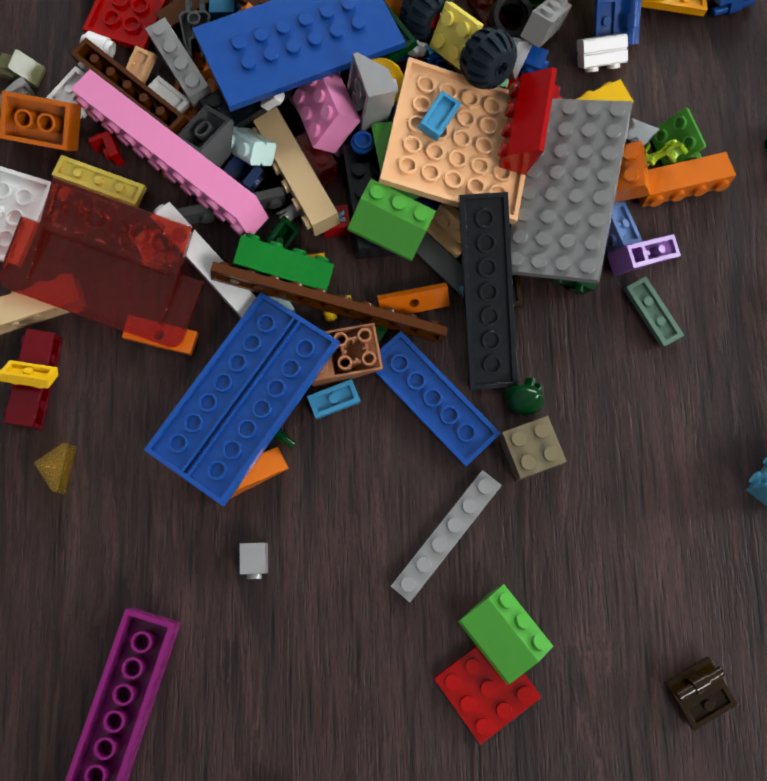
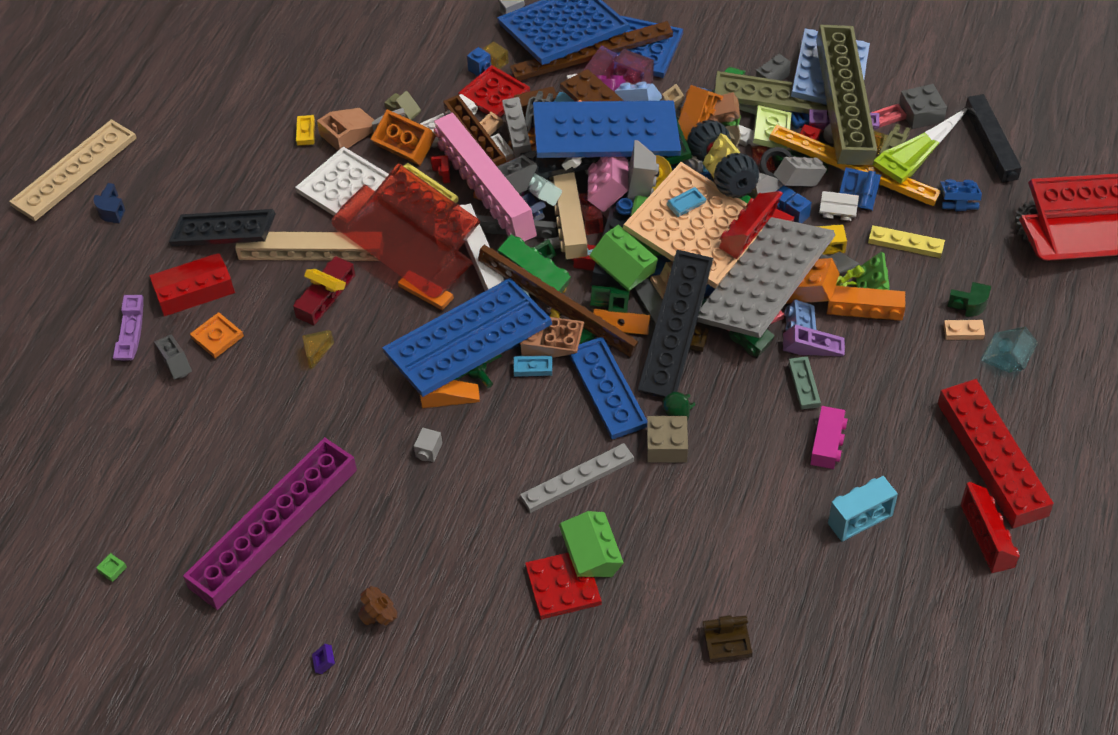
camera: 25 degrees right, 25 degrees down
(392, 271) = (613, 297): none -> dark green brick
(563, 65) = (798, 208): none -> blue brick
(691, 75) = (906, 241): none -> light yellow plate
(709, 379) = (829, 437): none -> dark pink brick

